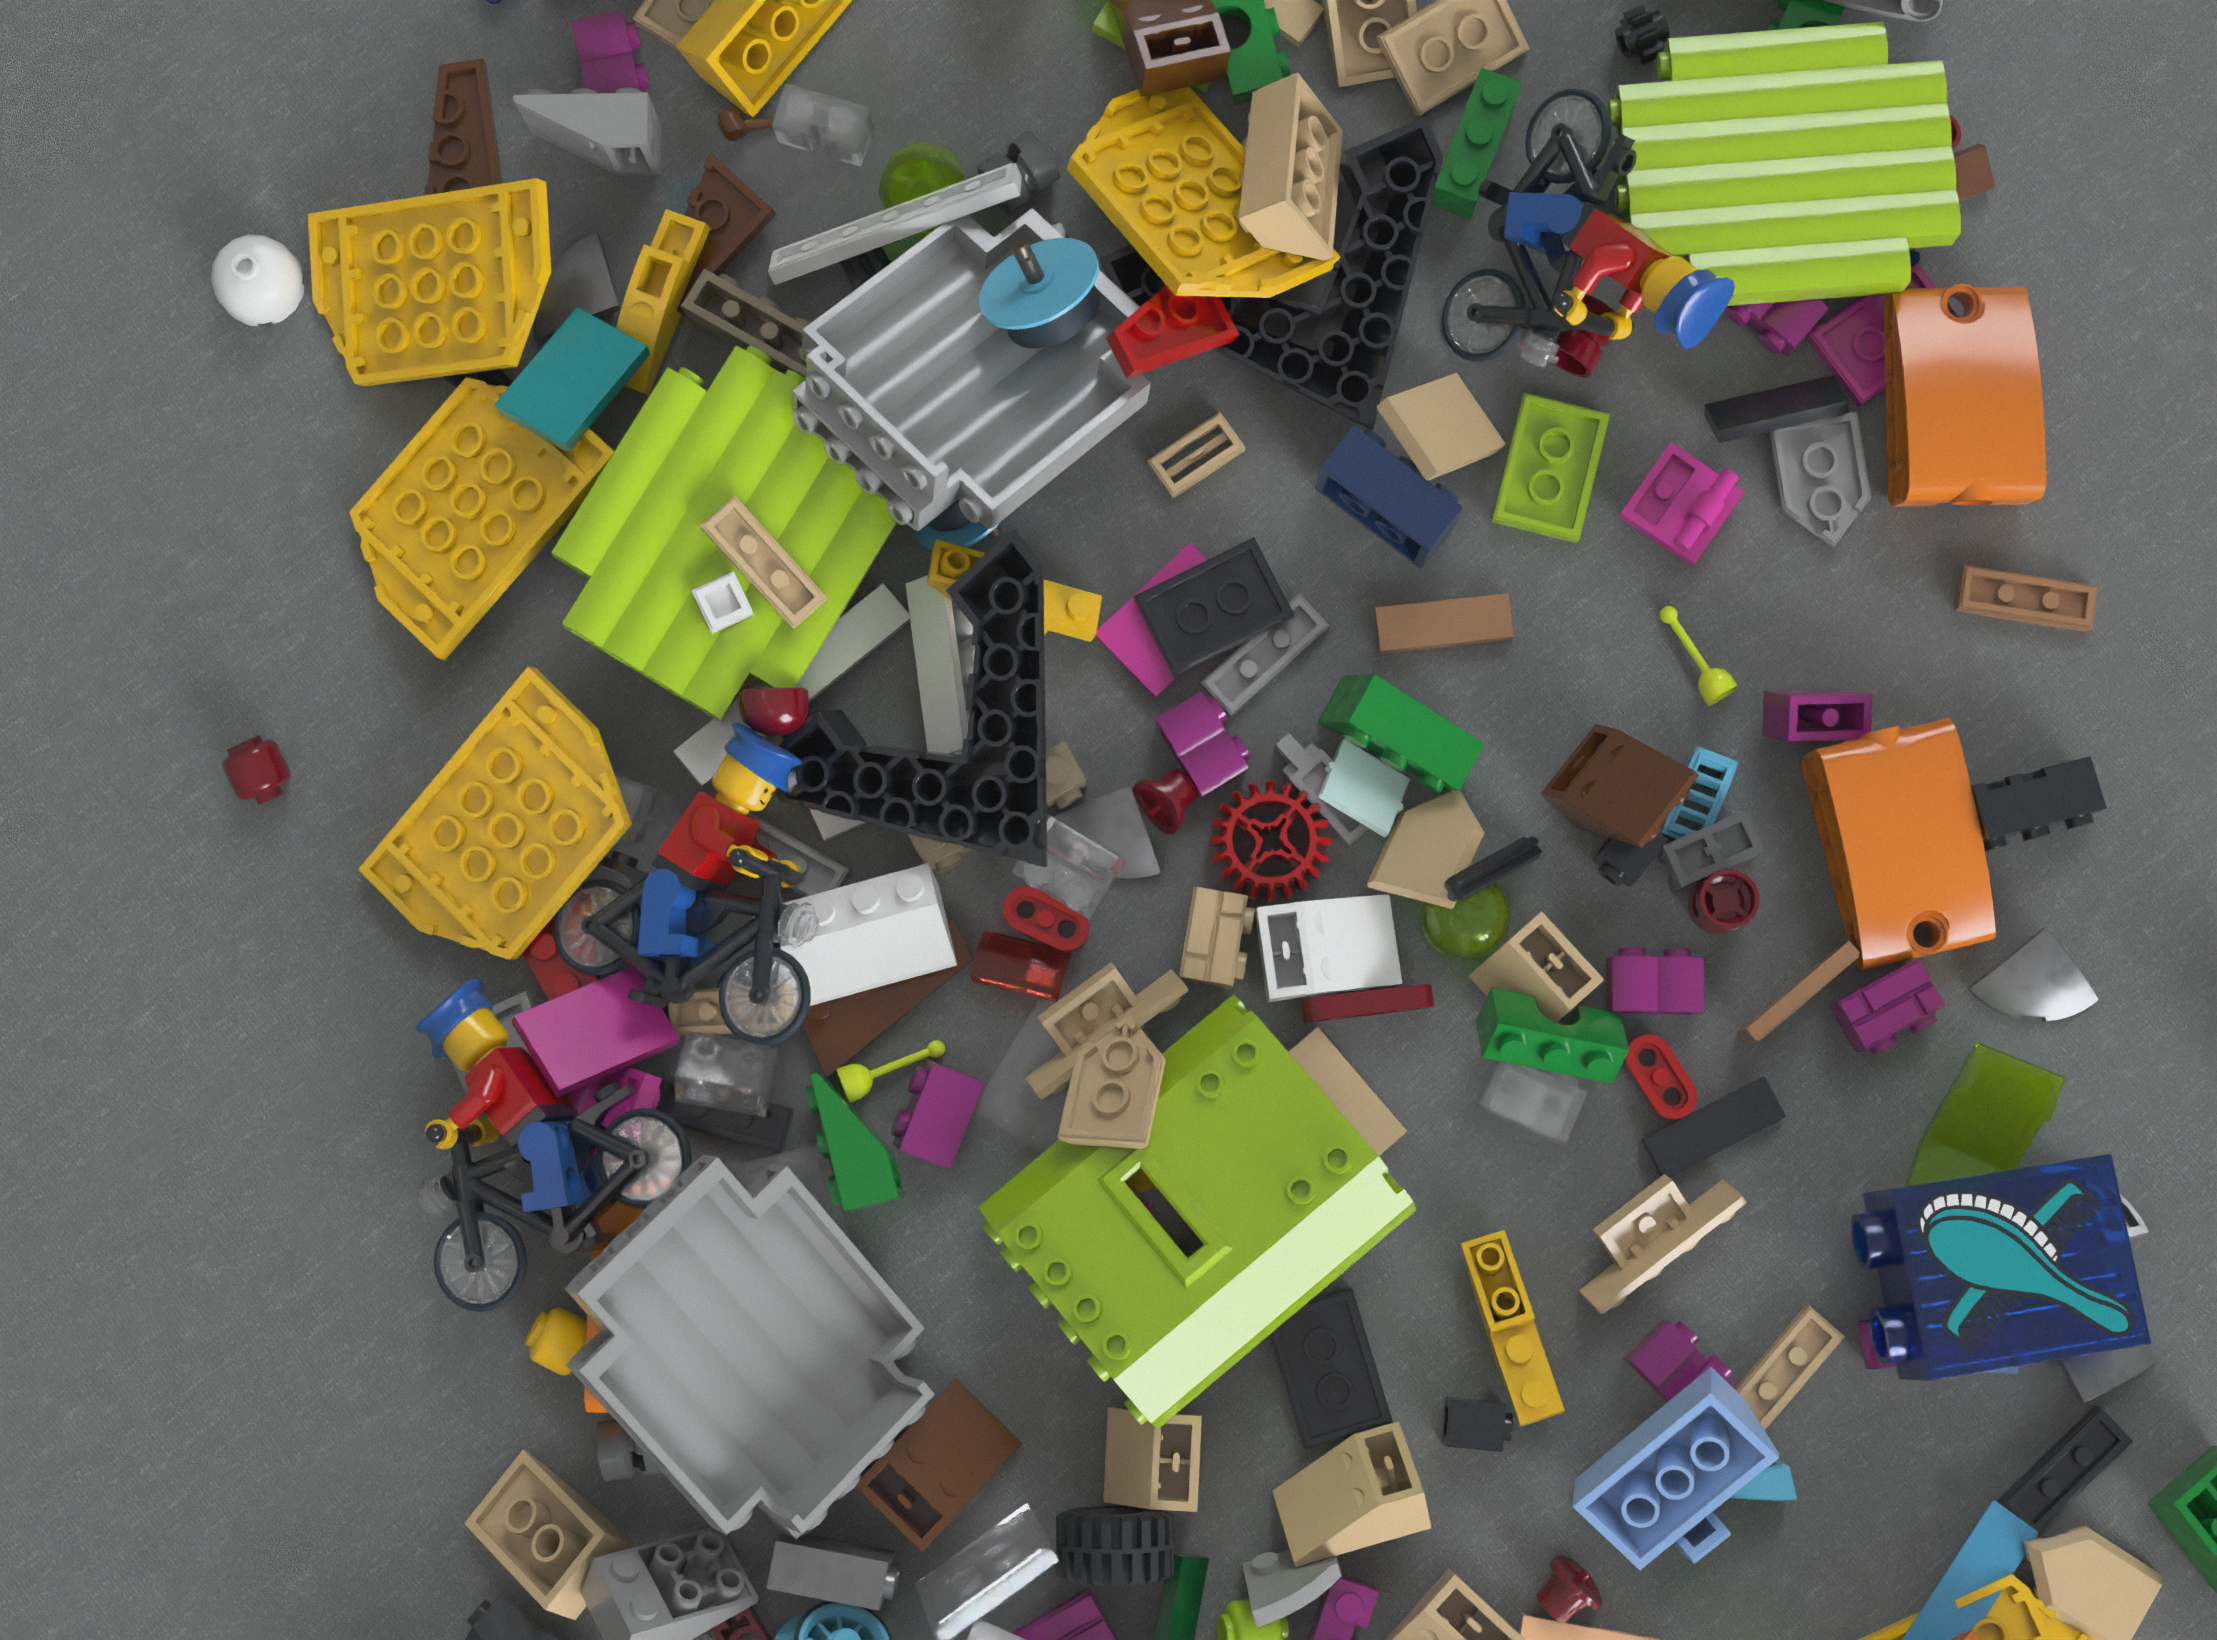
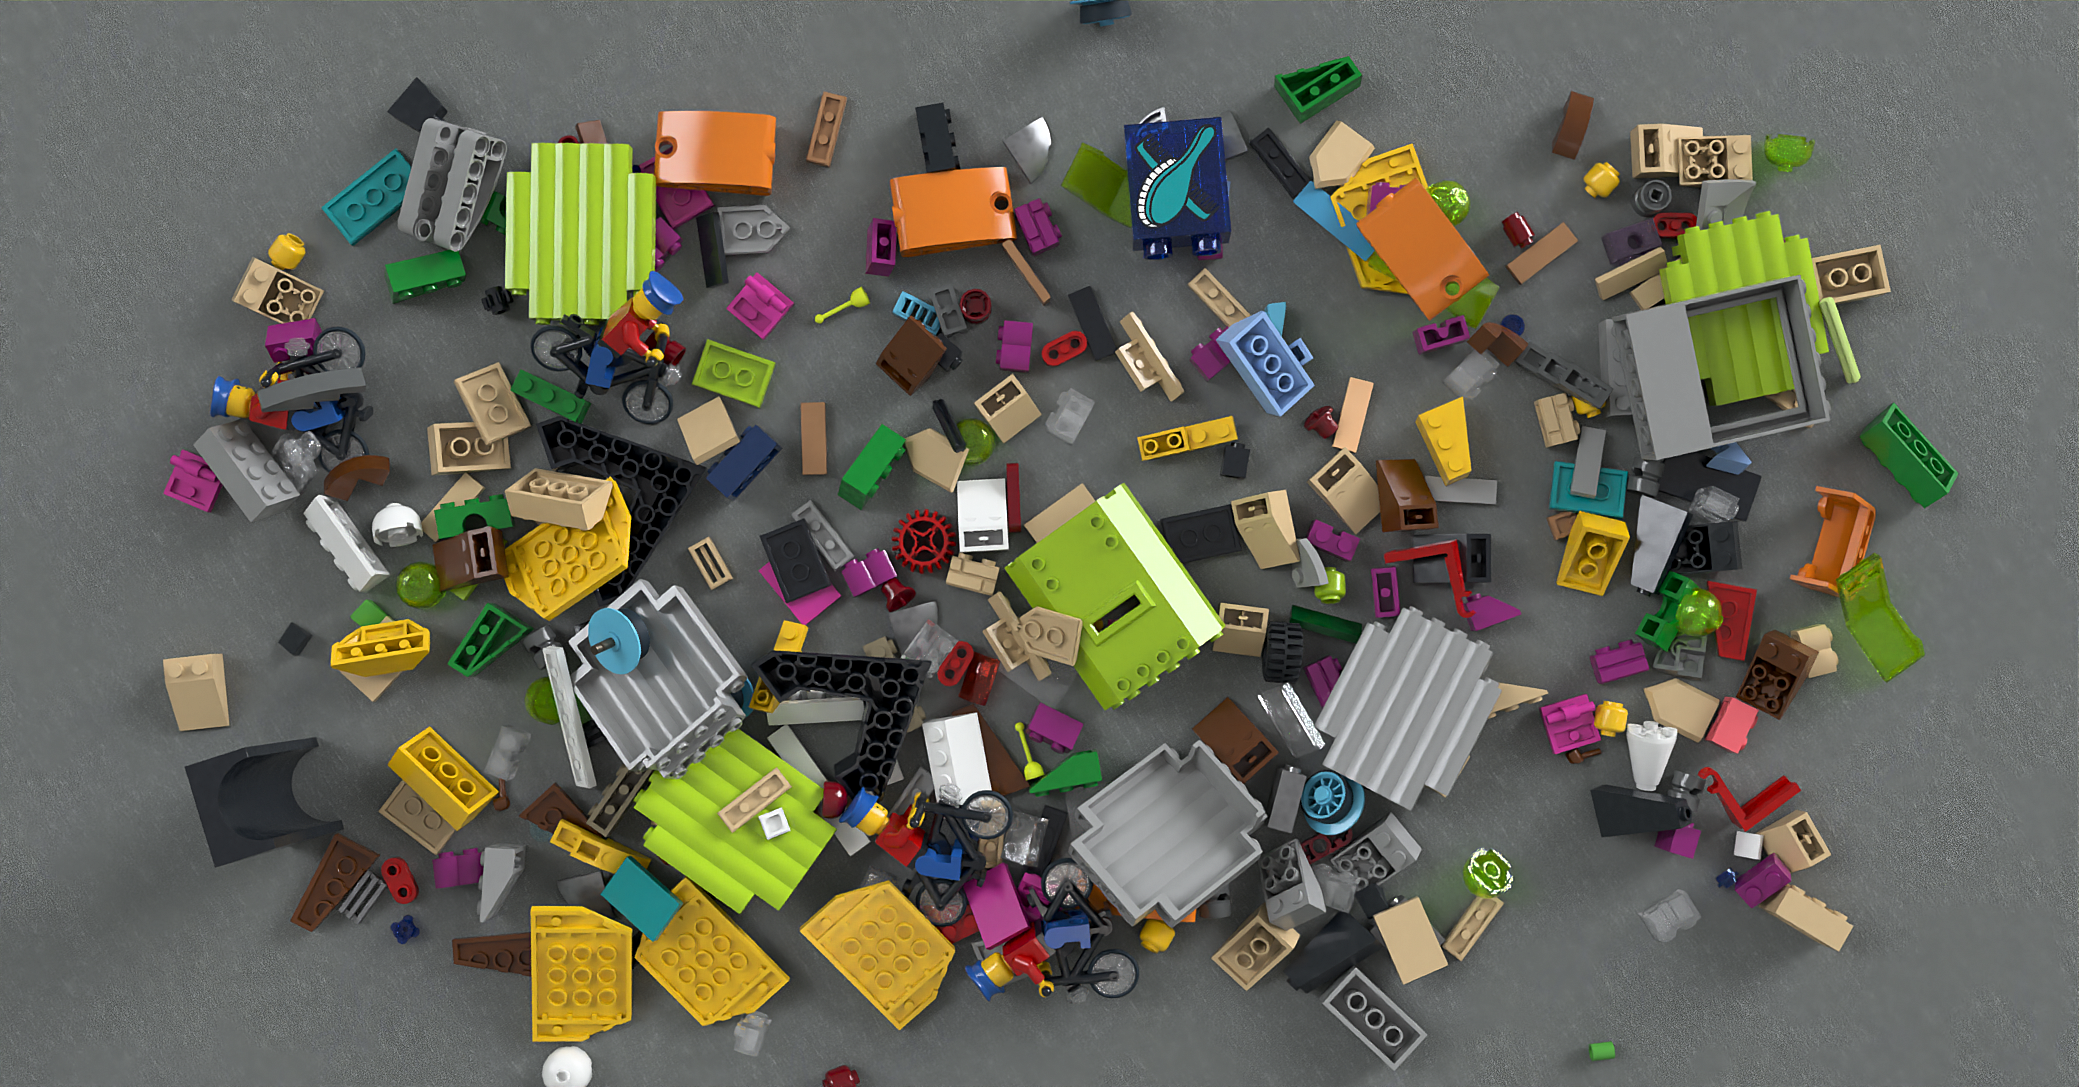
camera: 90 degrees left, 5 degrees up
(337, 599) = (752, 1033): none -> clear brick
(1024, 71) = (488, 639): none -> green wedge
(1169, 331) = (645, 572): red wing -> none
(1308, 773) = (896, 508): light grey hinge -> none
(1364, 788) = (900, 489): light aqua piece -> none
(1518, 1033) = (1036, 421): green arch -> none

